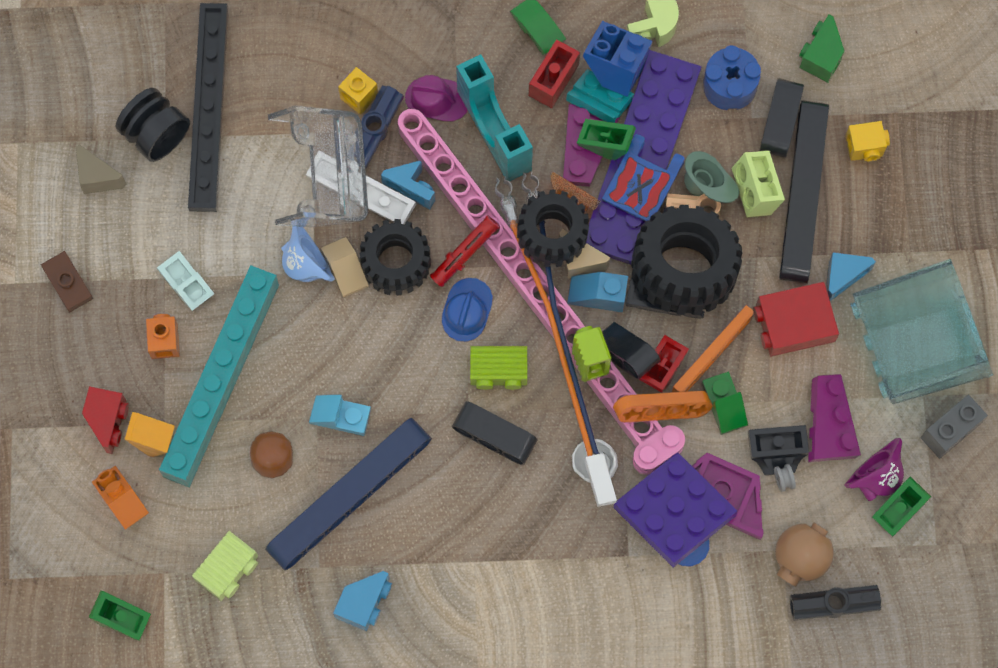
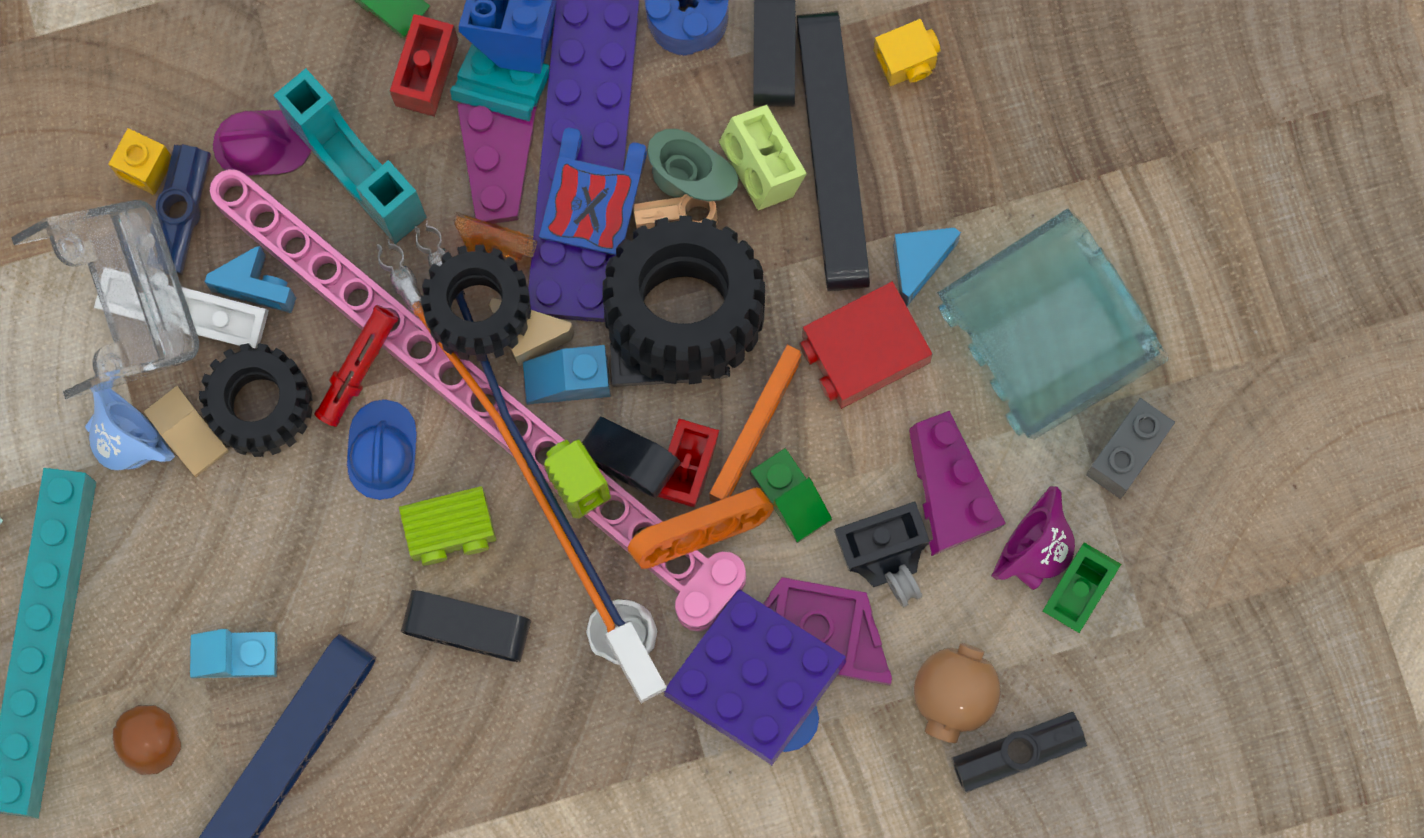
camera: 10 degrees left, 5 degrees up
(606, 138) = (523, 144): green slope -> none

